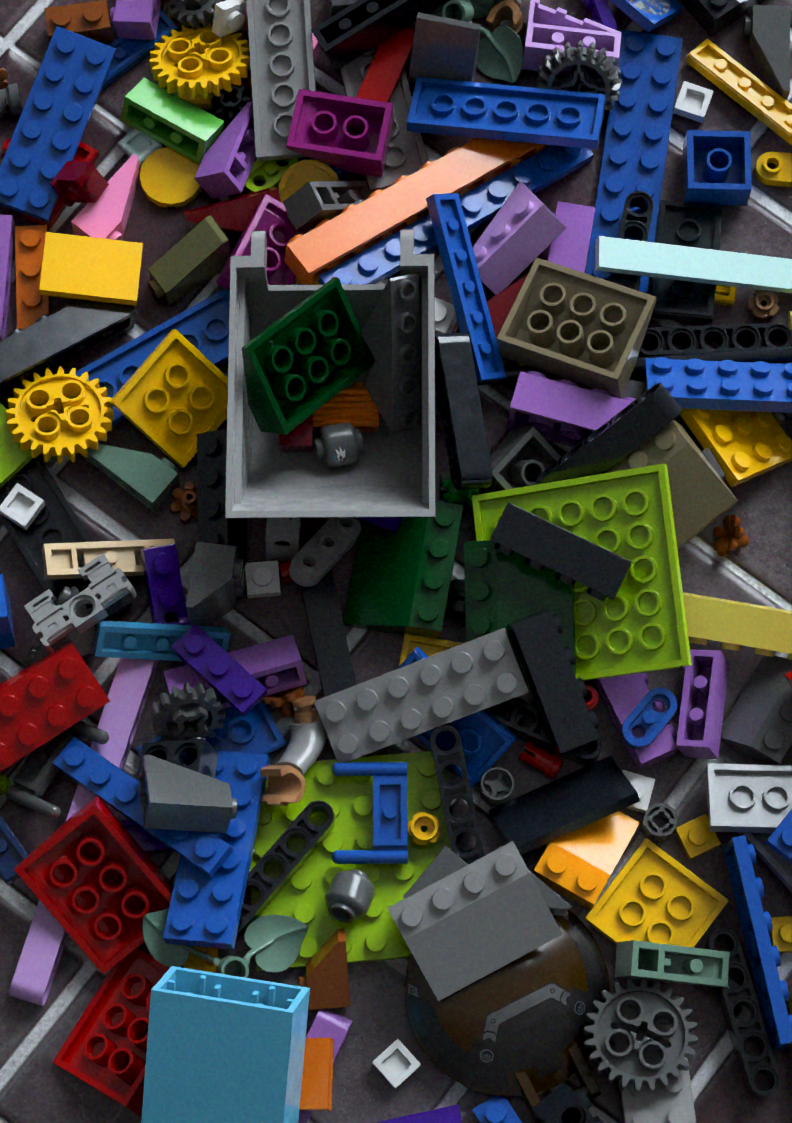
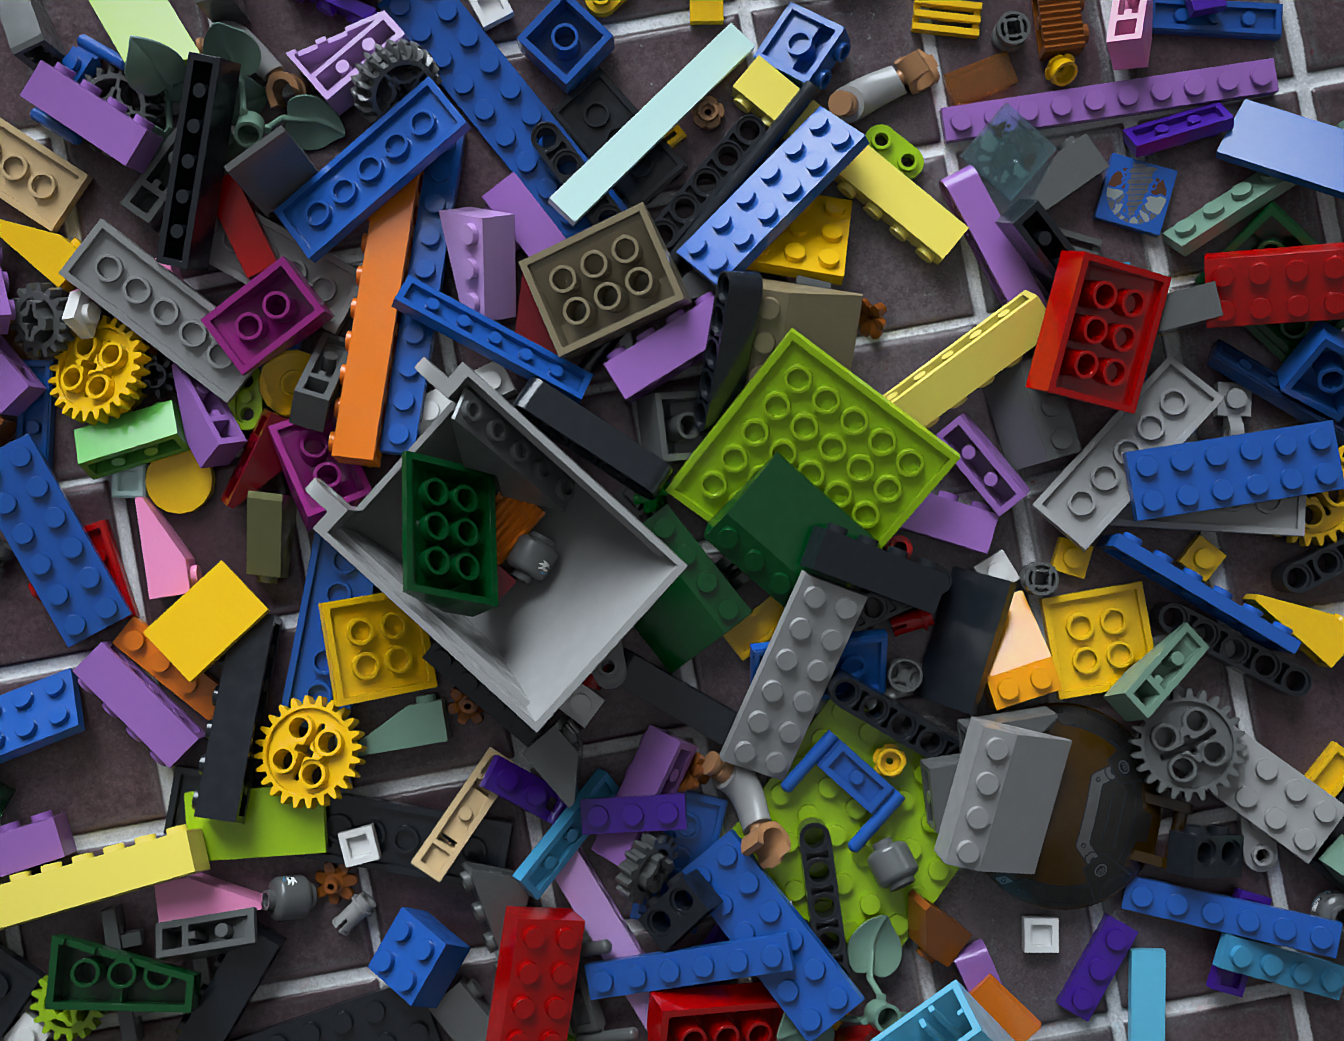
camera: 45 degrees left, 15 degrees up
(57, 621) = (497, 851): light grey piece -> none
(78, 183) = (122, 565): dark red brick -> none
(183, 798) = (718, 939): dark grey slope -> none
(561, 551) = (785, 475): black brick -> none
(648, 719) = (966, 518): blue plate -> none

